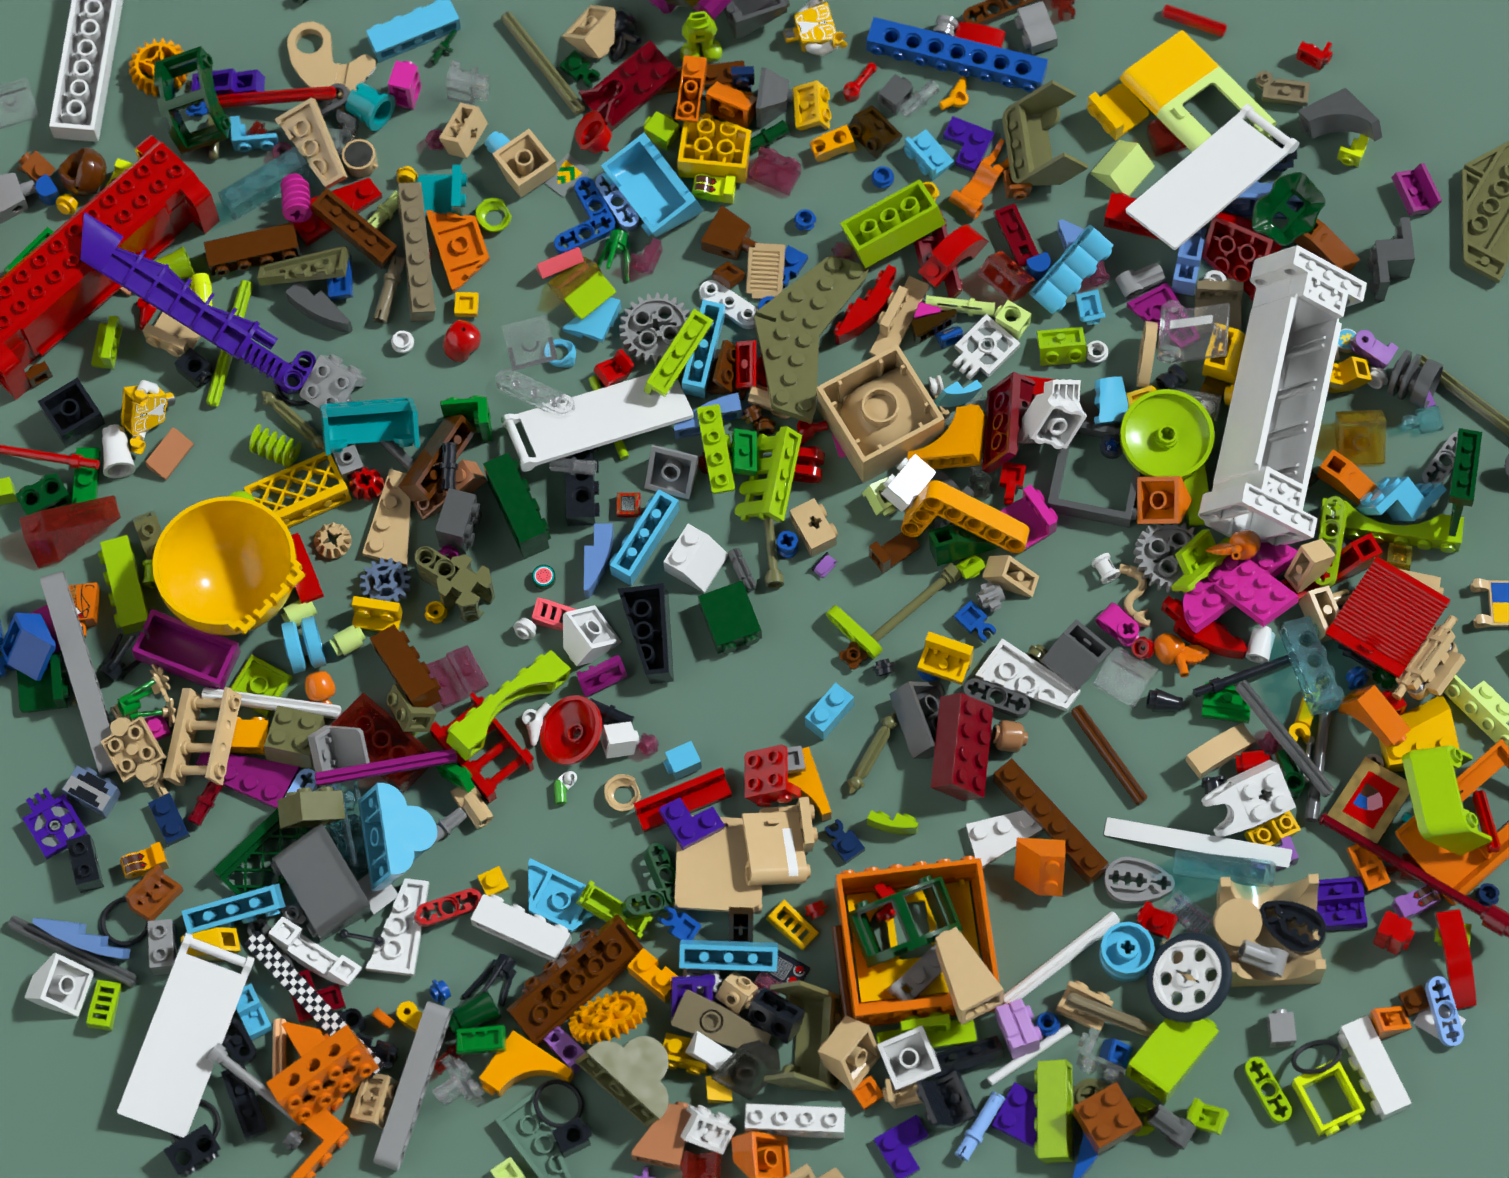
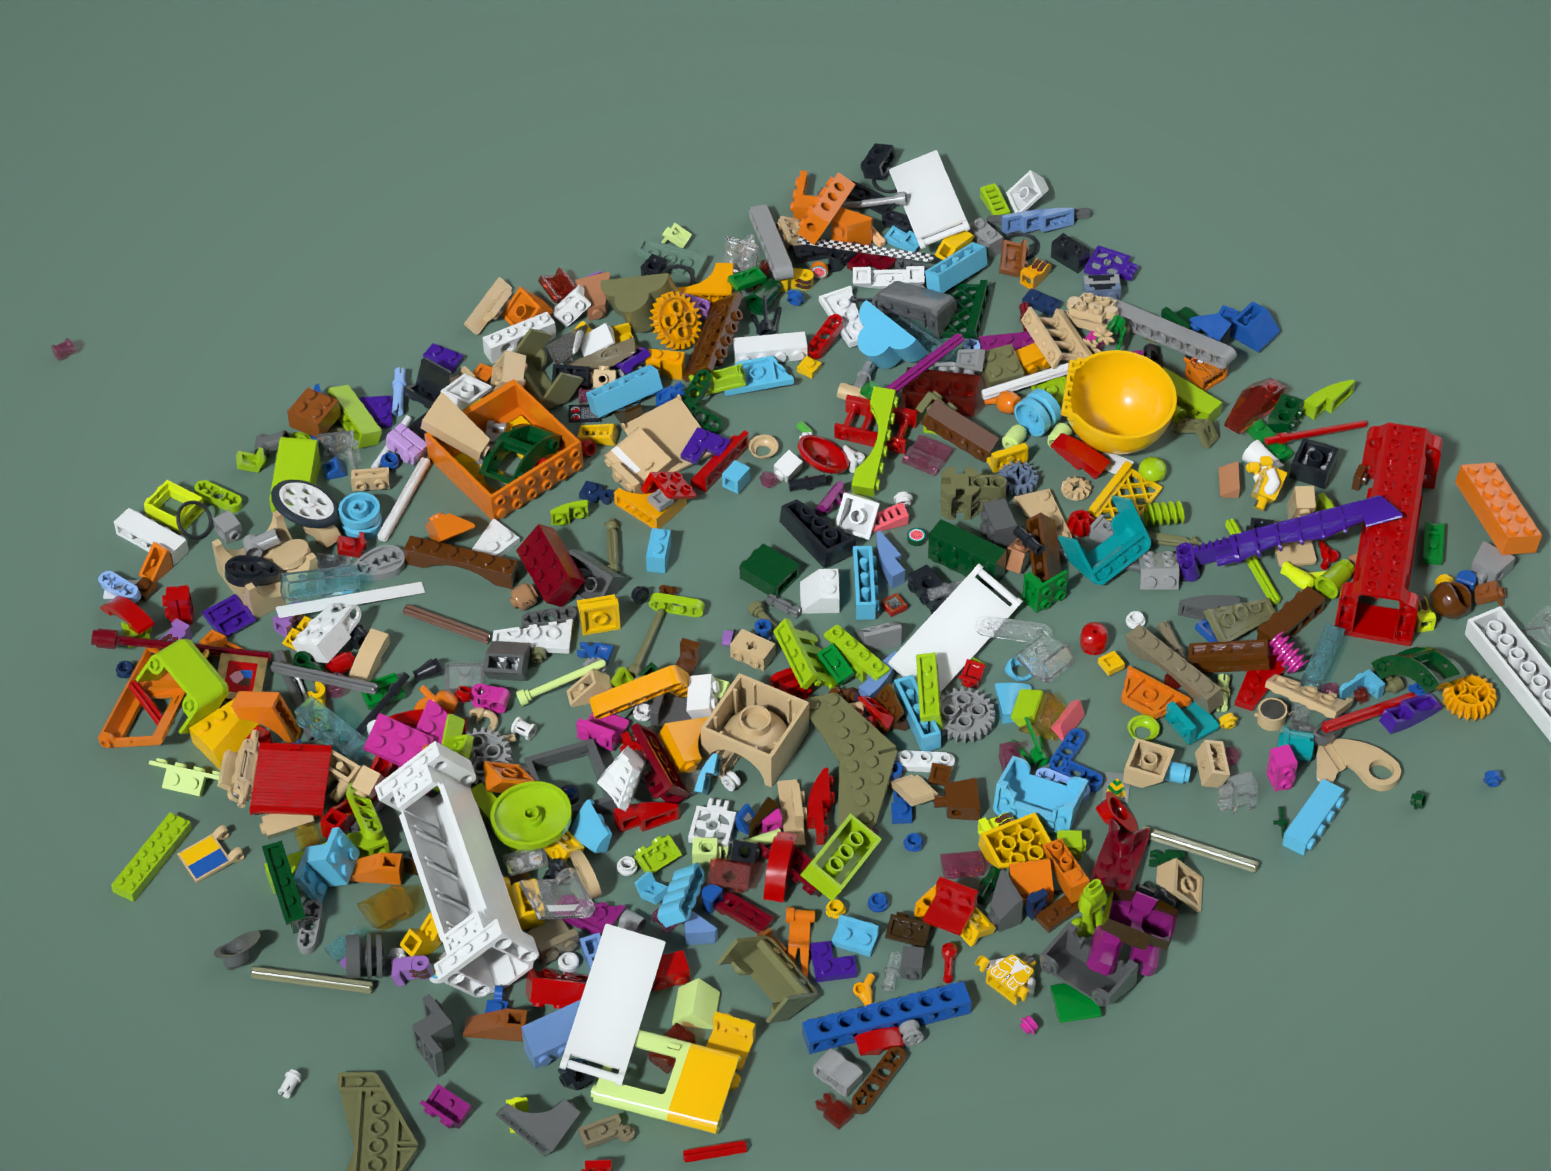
camera: 145 degrees right, 20 degrees down
(139, 349) = (1301, 502): none -> tan brick
(311, 807) = (950, 322): olive piece -> none
(830, 108) = (951, 906): none -> red bracket
(981, 288) = (734, 851): none -> black brick
(1081, 607) = (525, 696): none -> yellowish green piece
(1110, 1015) = (346, 476): dark tan axle -> none
(1275, 201) = (524, 992): dark green piece -> none

